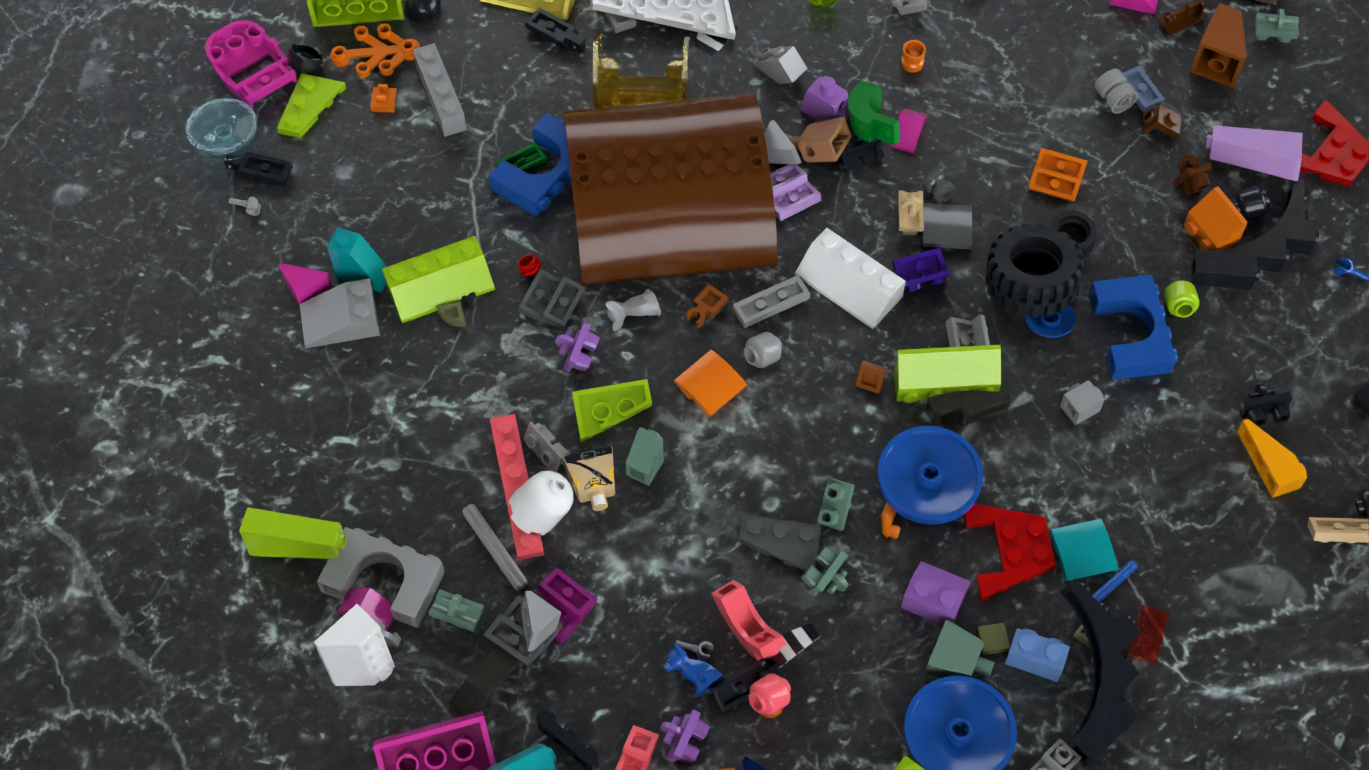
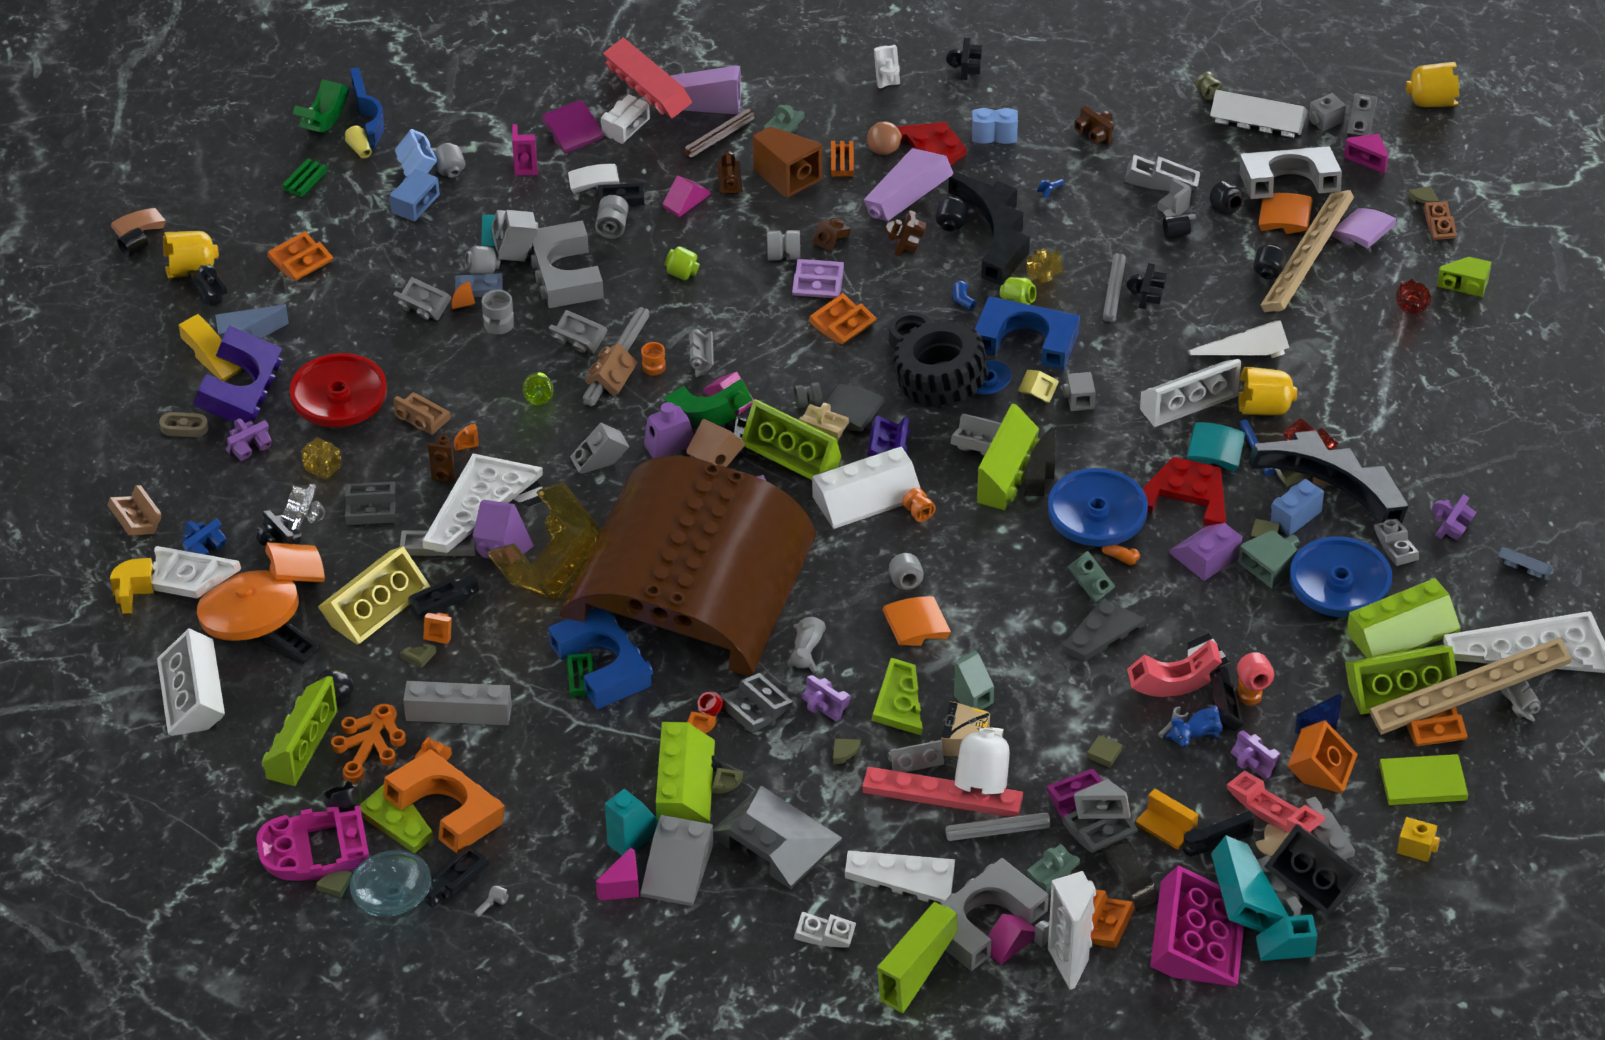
camera: 65 degrees left, 15 degrees down
(219, 91) = (334, 883): none -> olive tile
(313, 456) = (823, 932): none -> white slope
(329, 153) = (434, 775): none -> orange arch
(404, 376) = (777, 834): none -> slope
(405, 495) = (916, 875): none -> white wing
(422, 673) = (1109, 919): none -> orange slope
(487, 44) = (418, 655): none -> olive tile
(506, 268) = (702, 721): none -> orange tile
(518, 41) = (437, 627): none -> orange tile
(529, 389) = (845, 749): none -> olive tile
(565, 688) = (1167, 819): none -> light orange panel
(630, 36) = (499, 526): none -> medium lavender slope
(630, 601) = (1104, 751): none -> olive tile
(708, 303) = (833, 592): dark orange plate -> none
(771, 301) = (856, 550): light grey plate -> none
(818, 581) = (1154, 610): sand green hips -> none
(855, 324) = (919, 505): none -> orange wheel
(859, 196) = (790, 441): none -> lime slope
(871, 377) = (976, 511): dark orange tile -> none
(883, 33) = (612, 368): none -> medium nougat bracket
(903, 30) = (625, 340): none -> light grey axle
(951, 84) = (701, 351): none -> light grey hinge
(1043, 27) = (681, 263): none -> lime head
(1067, 364) = (1038, 385): none -> light yellow panel
(1096, 136) = (818, 278): none -> lavender slope
(1138, 498) = (1191, 392): none -> white slope
(1147, 92) = (804, 226): sand blue plate -> none
(1155, 251) = (960, 295): none -> blue arm
(1177, 566) = (1266, 392): none -> yellow cylinder
(1215, 222) = (962, 238): orange slope -> none
(1230, 305) = (1052, 265): none -> clear yellow brick
(1247, 378) = (1114, 287): none -> light grey axle
(1252, 536) = (1256, 341): none -> white wedge
(1266, 88) = (842, 147): none -> orange tile
(1273, 461) = (1197, 303): light orange slope -> none
(1315, 110) = (883, 138): none -> nougat hair

